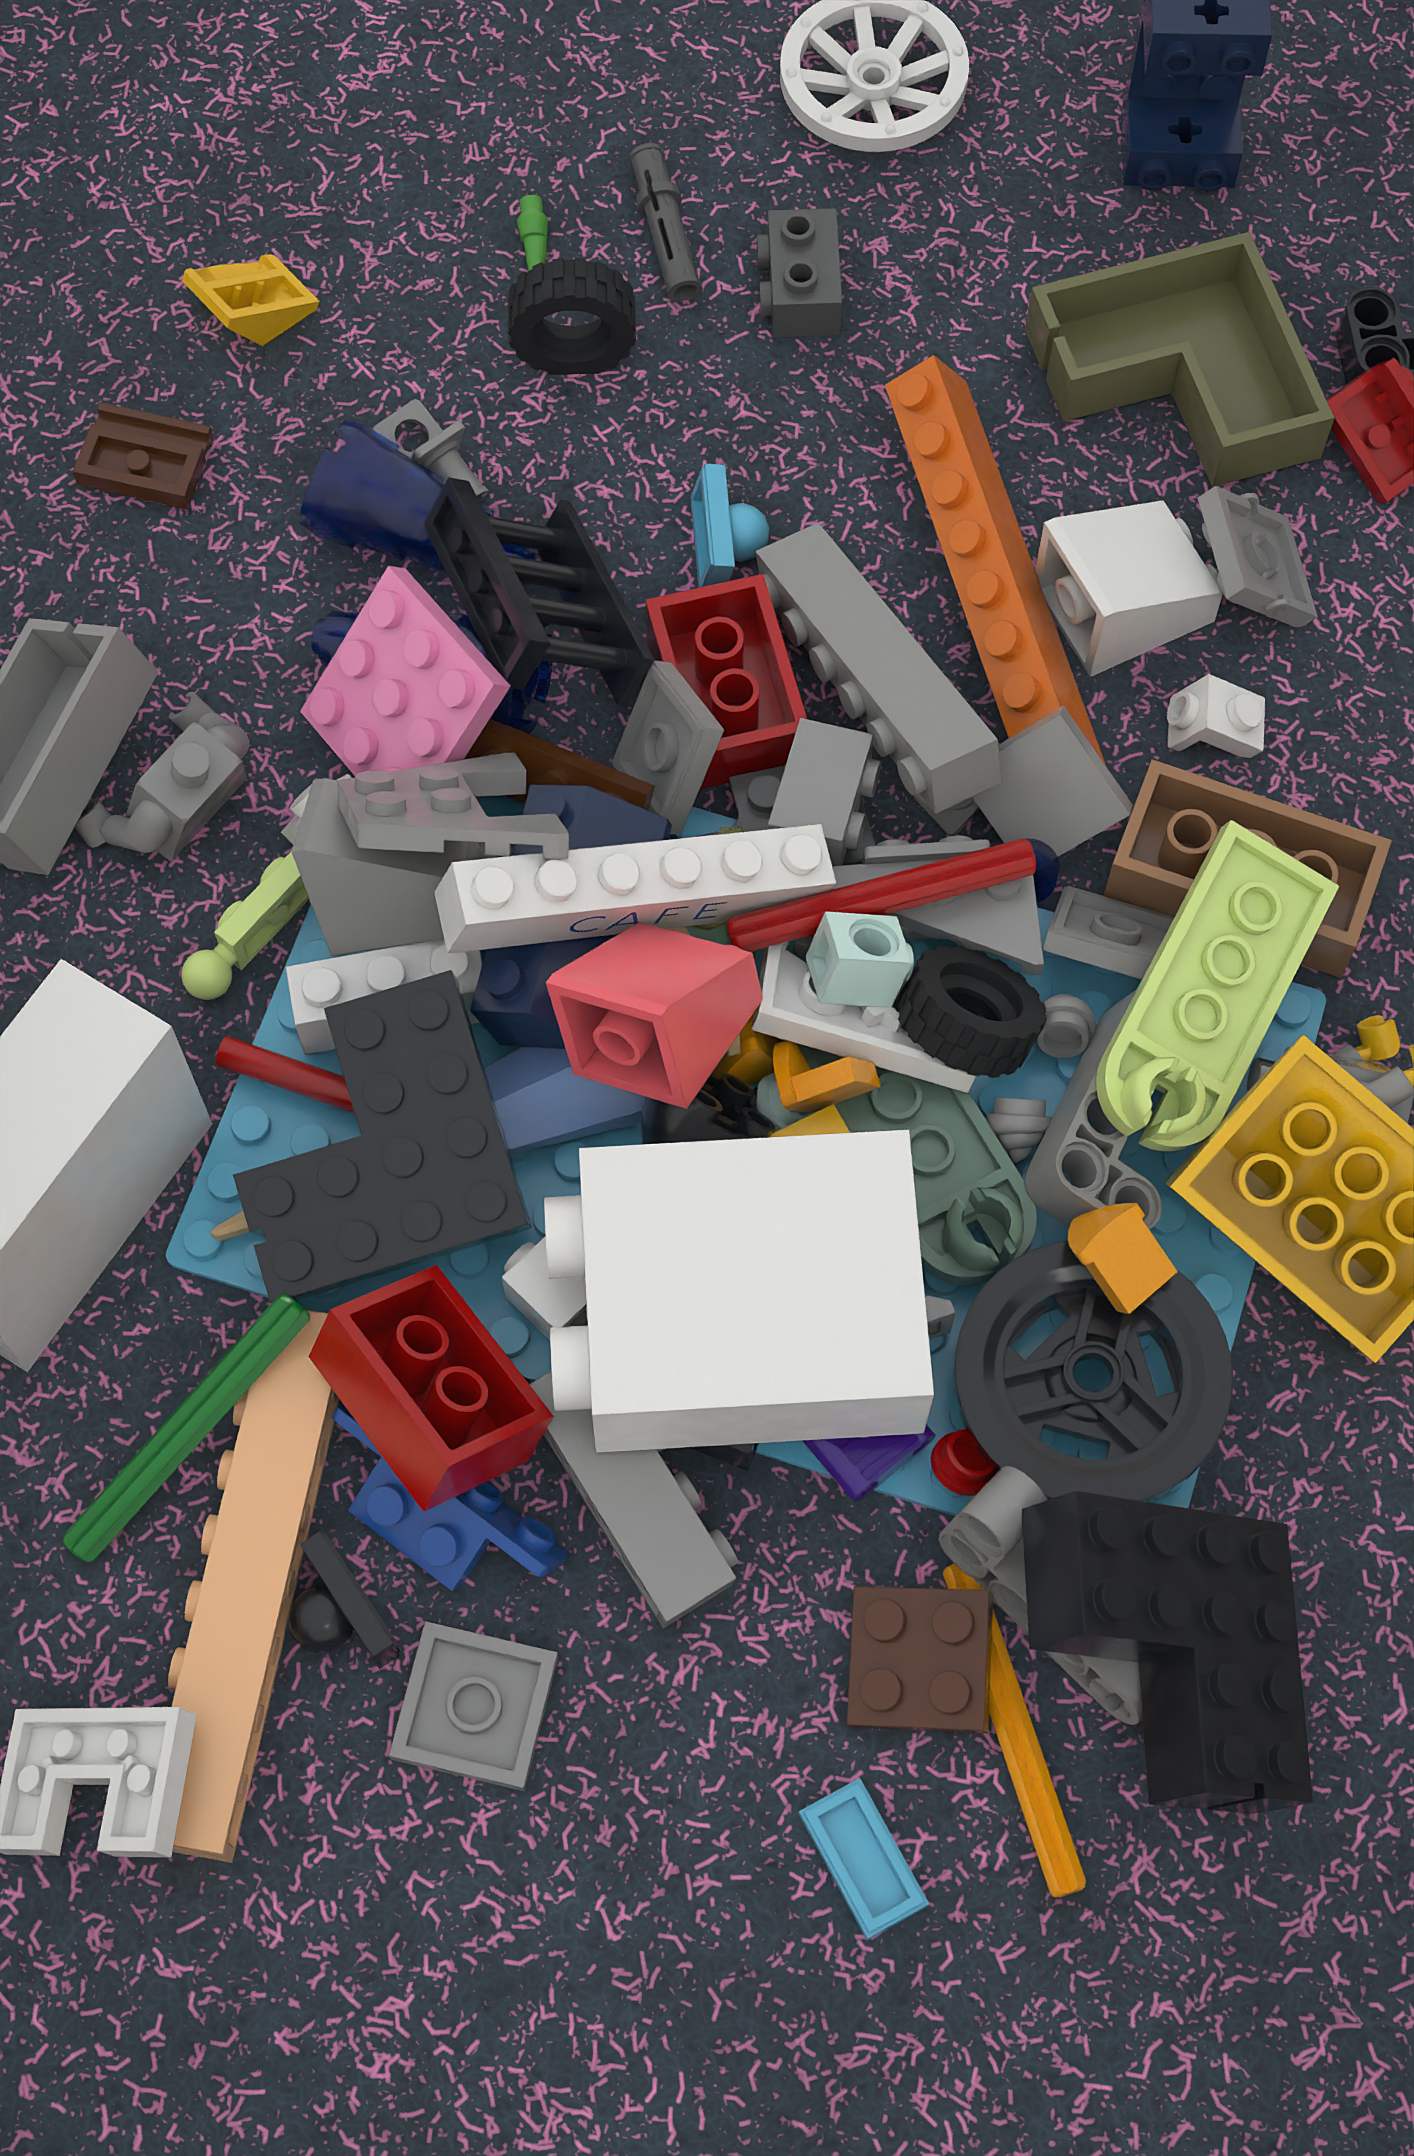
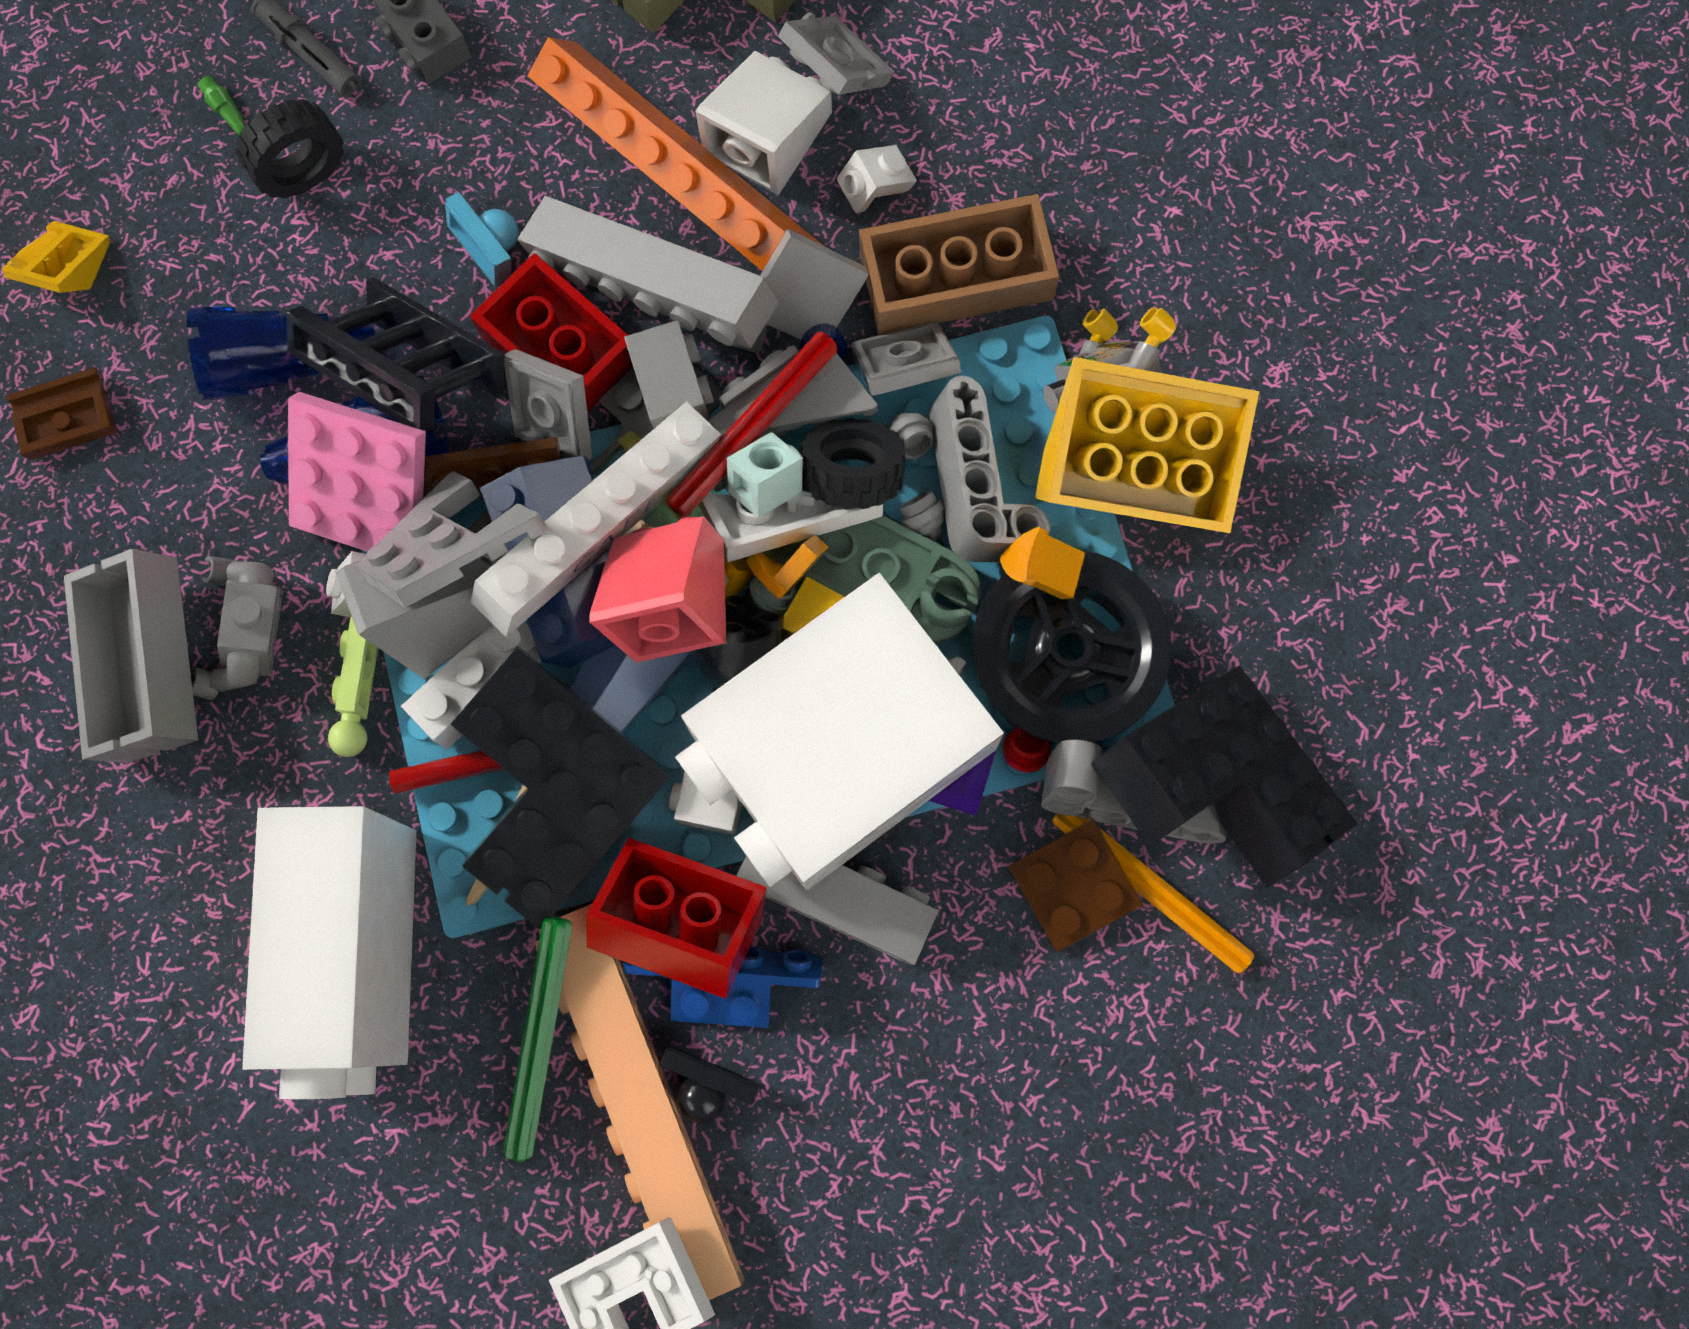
camera: 30 degrees left, 10 degrees up
(440, 450) = (262, 293): light grey bracket -> none
(474, 1706) = (827, 1088): light grey tile -> none
(863, 1859) = (1116, 1024): medium azure tile -> none
(1211, 991) = (994, 360): yellowish green plate -> none

